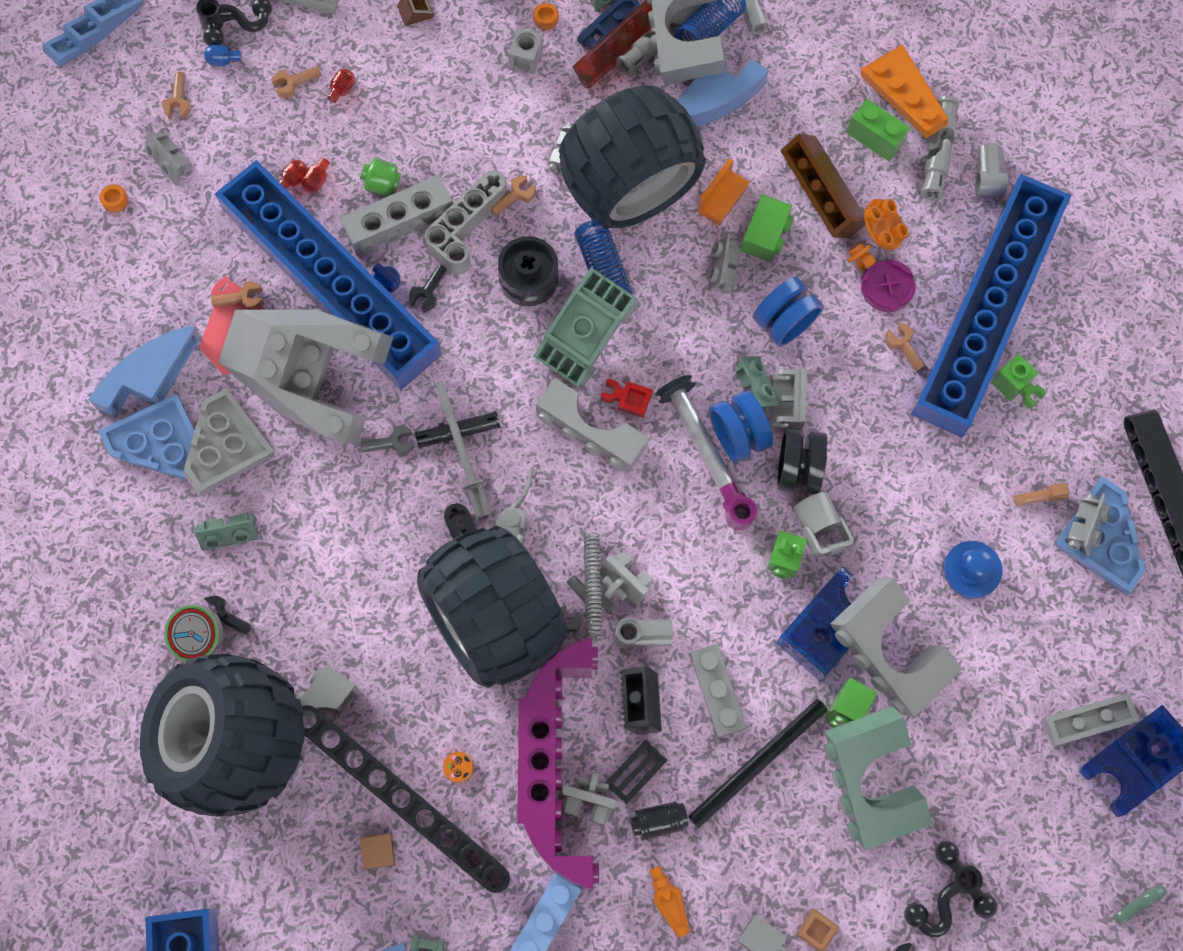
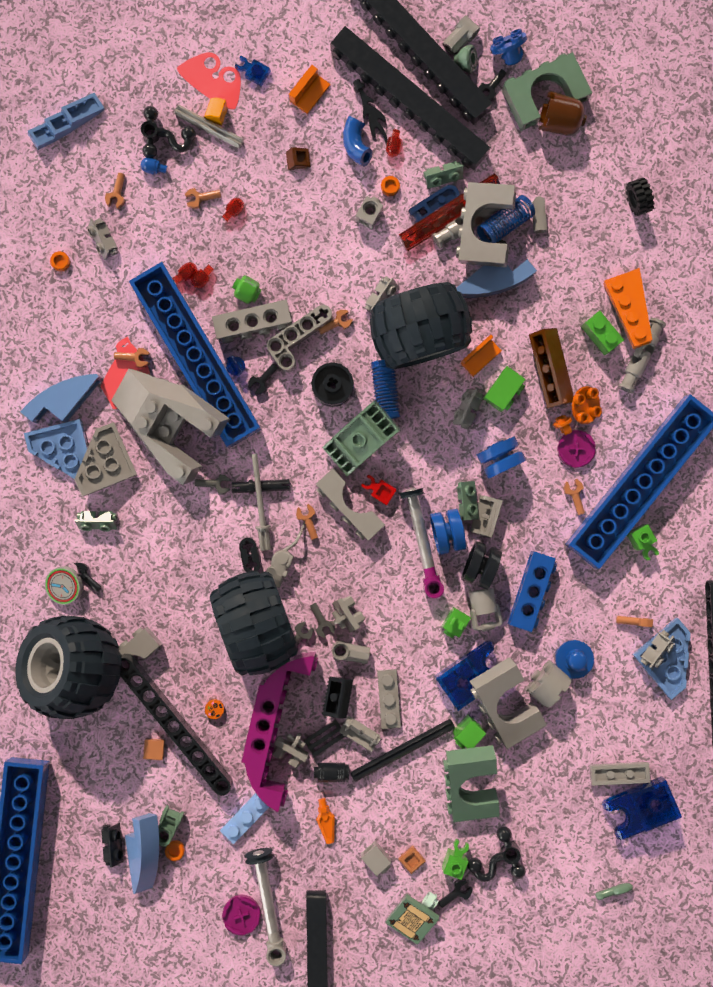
camera: 10 degrees right, 15 degrees up
(535, 461) = (308, 521): none -> nougat bar
(589, 597) = (321, 619): light grey piece -> none
(688, 752) = (360, 733): none -> light grey hinge
(875, 528) = (535, 561): none -> blue brick
(885, 915) = (455, 861): none -> bright green brick
(947, 608) = (548, 684): none -> light grey brick
(991, 177) = (671, 385): light grey piece -> none

